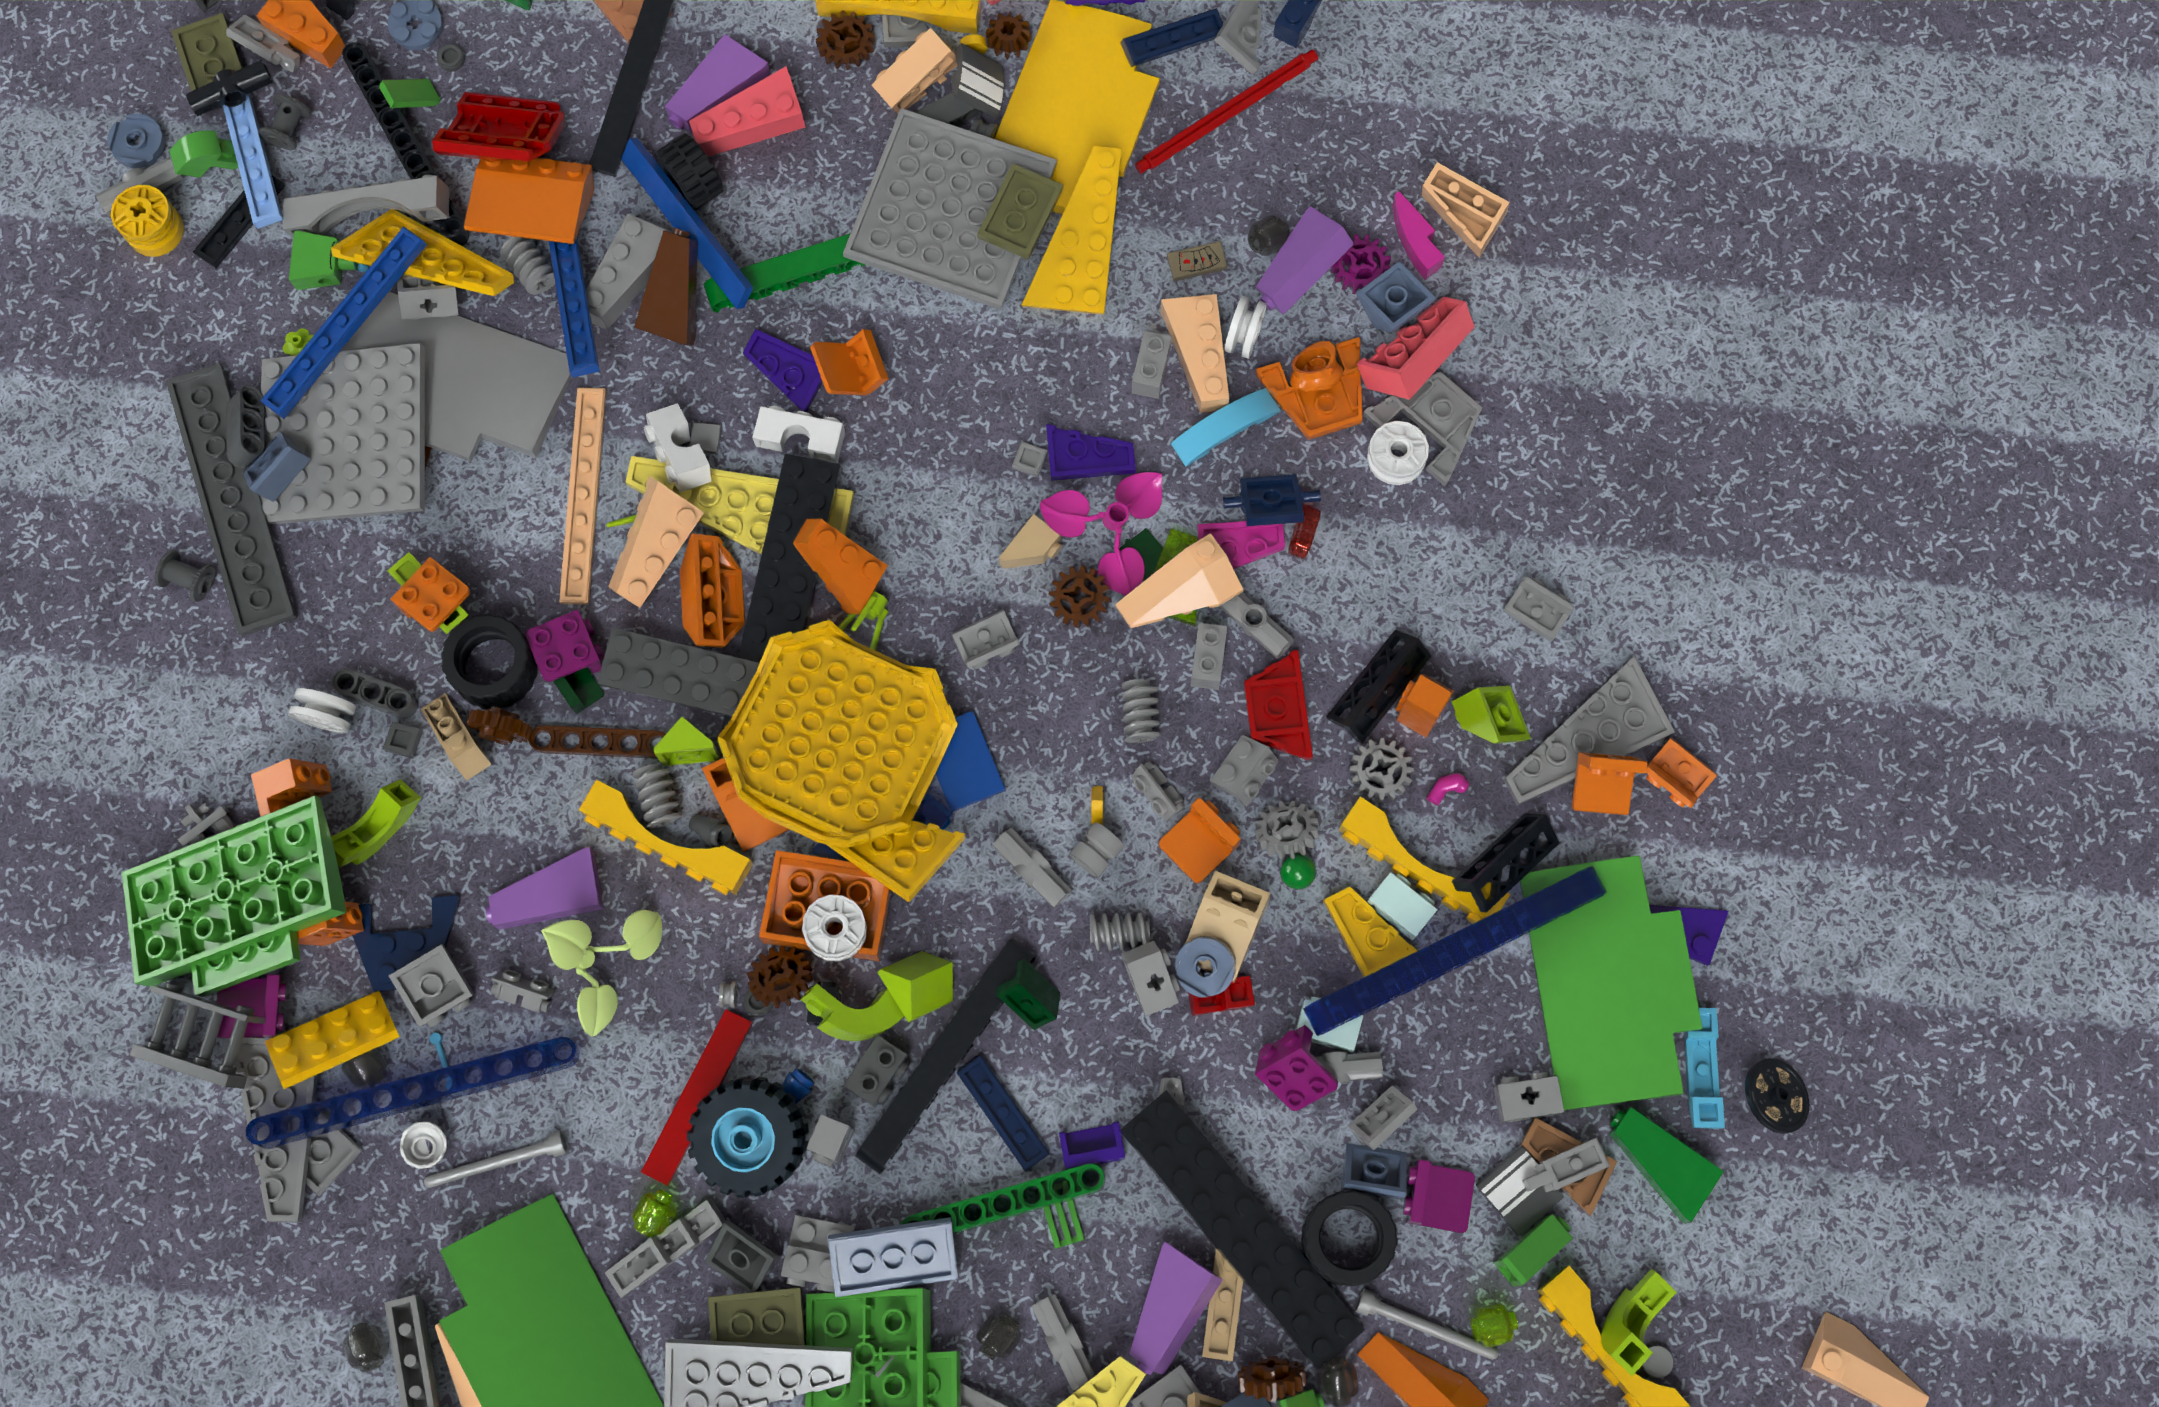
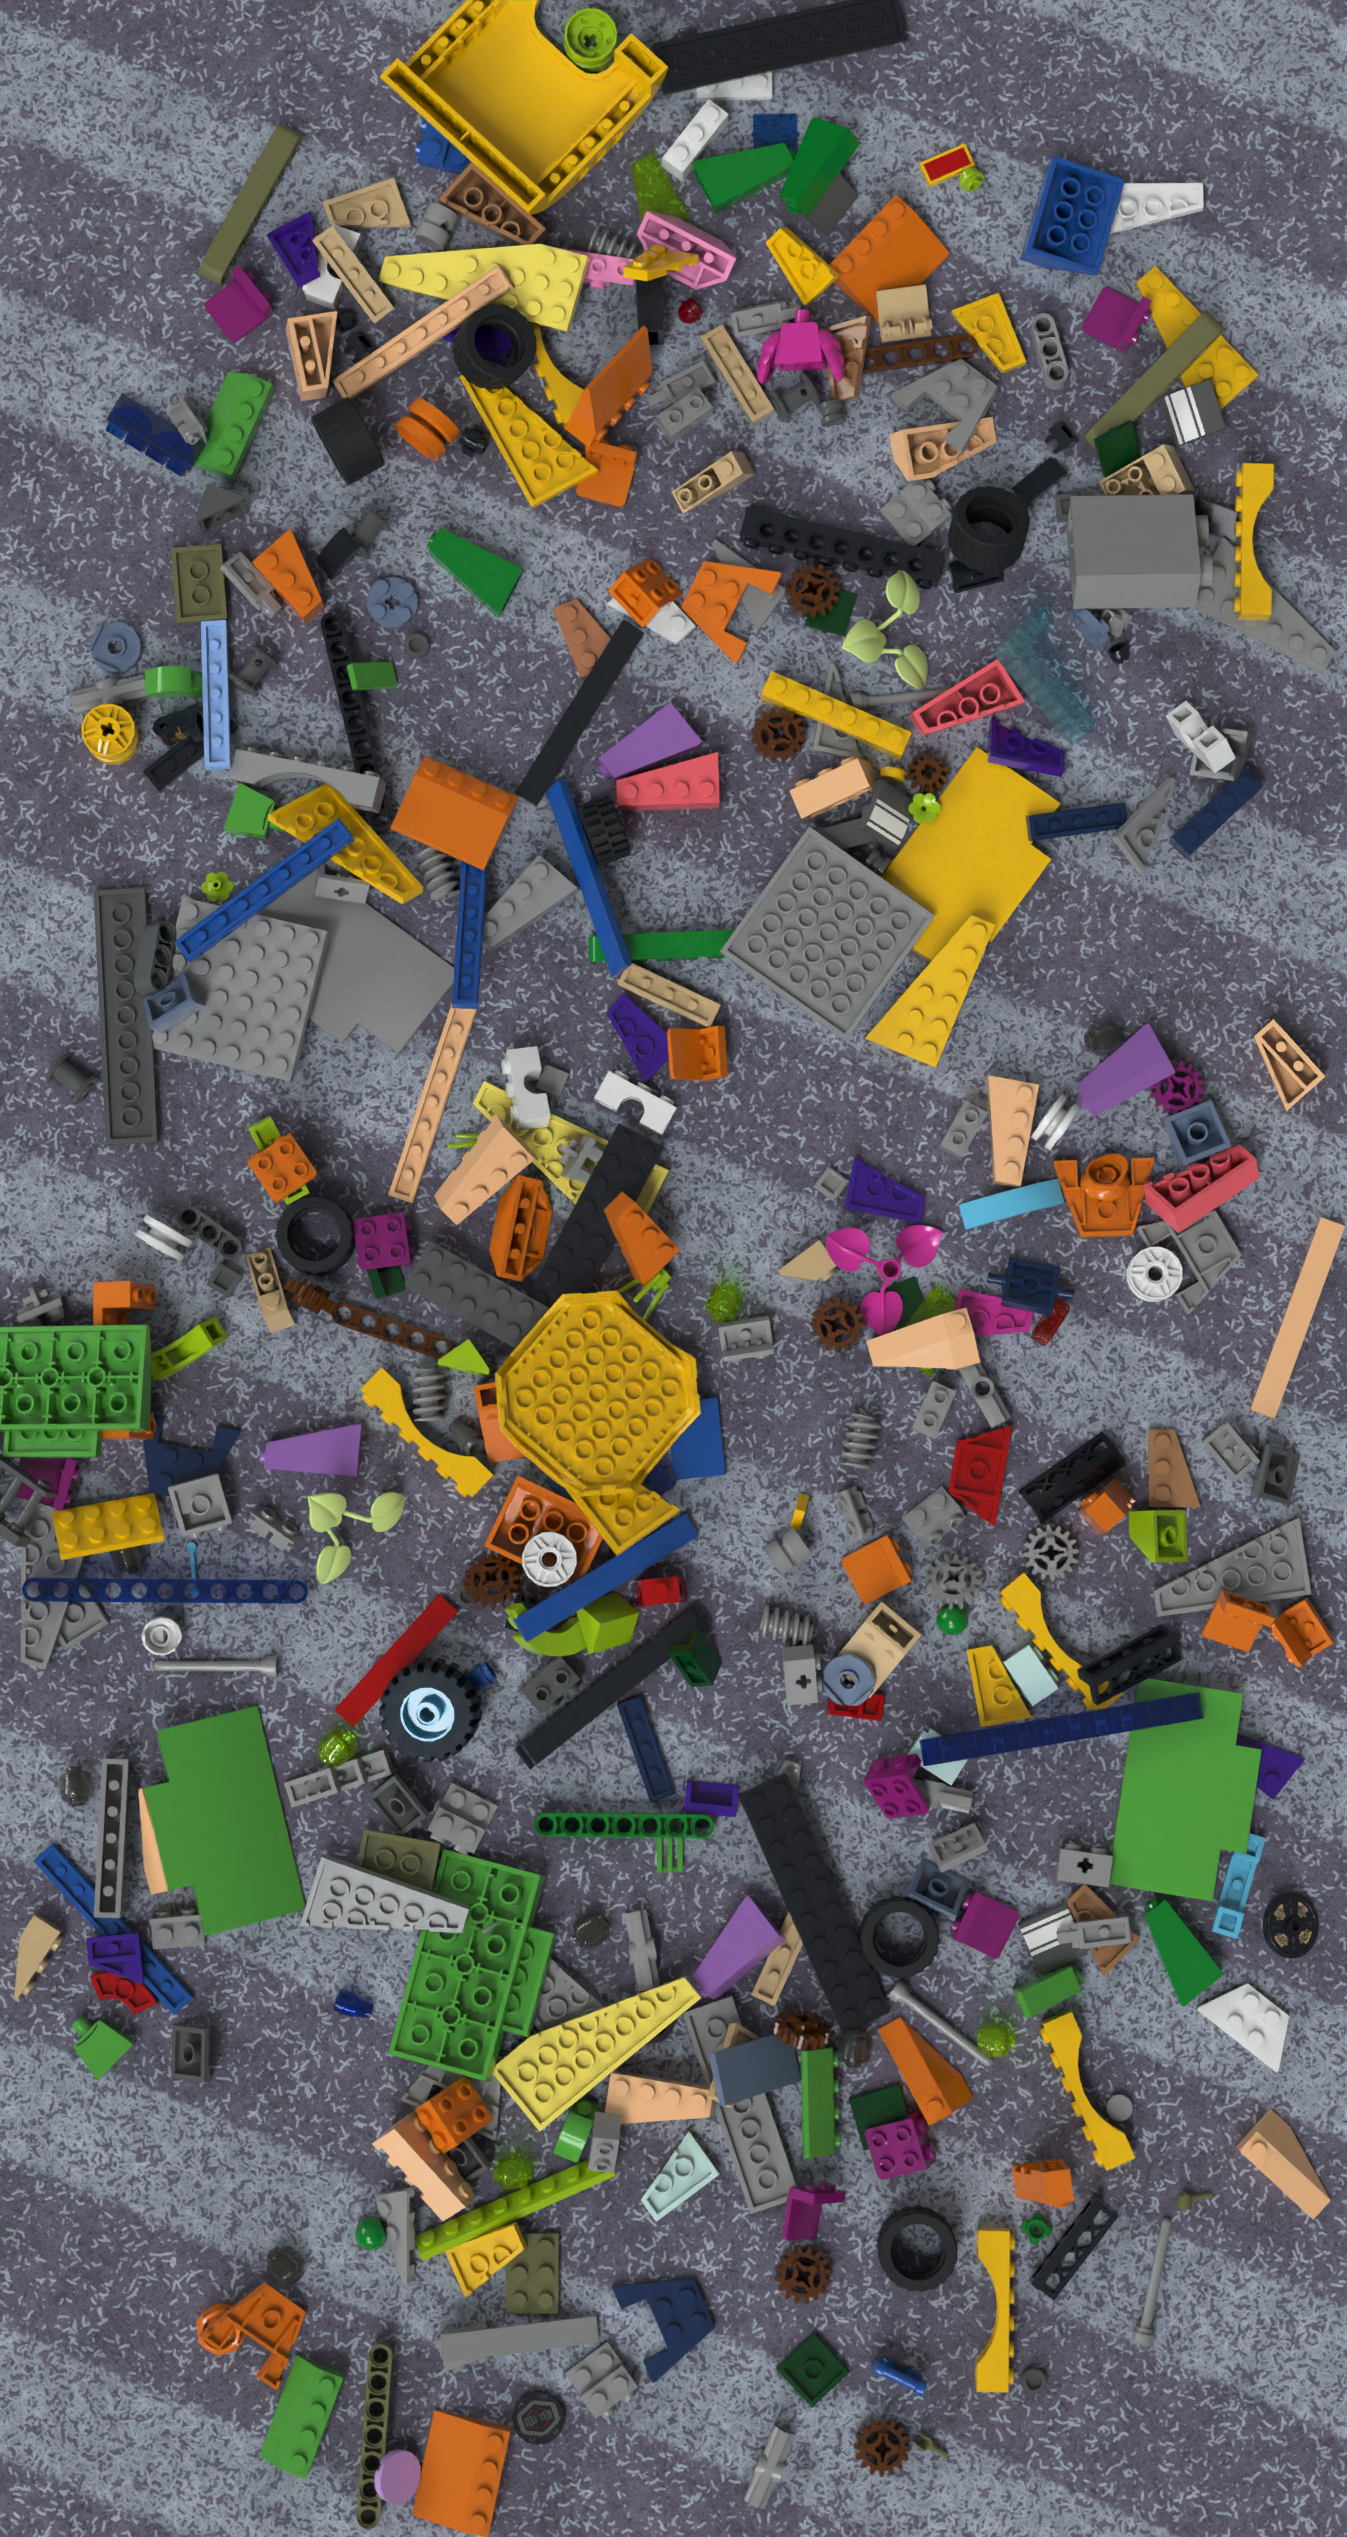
camera: 15 degrees right, 10 degrees up
(219, 196) = (179, 726): none -> black leg
(229, 88) = (212, 626): black piece -> none
(500, 128) = (447, 739): red wedge -> none
(670, 294) = (556, 944): reddish brown slope -> none
(728, 994) = (444, 1582): light grey bush -> none
(758, 491) = (585, 1149): none -> light grey hips
(803, 318) = (669, 995): none -> tan plate
(829, 1141) = (496, 1733): light grey brick -> none
(892, 1257) = (523, 1842): tile -> none
(902, 934) = (605, 1578): none -> blue tile
(950, 609) = (723, 1302): none -> clear neon green head
(969, 932) = (660, 1591): none -> red torso
(1015, 62) = (927, 801): none -> lime plant
(1020, 211) = (887, 959): olive plate -> none
(1032, 868) = (729, 1550): light grey piece -> none
(1196, 261) = (1033, 1041): dark tan tile -> none
(1226, 111) = (1104, 904): red piece -> none
(1416, 237) = (1234, 1077): dark pink slope -> none
(1446, 784) = (1102, 1580): dark pink arm -> none
(1479, 651) = (1168, 1473): none -> medium nougat wing
(1561, 457) = (1297, 1318): none -> light nougat tile
(1592, 620) = (1275, 1475): none -> dark grey slope
(1629, 1318) = (1106, 2068): lime arch -> none
(1769, 1219) = (1251, 2022): none -> white wing

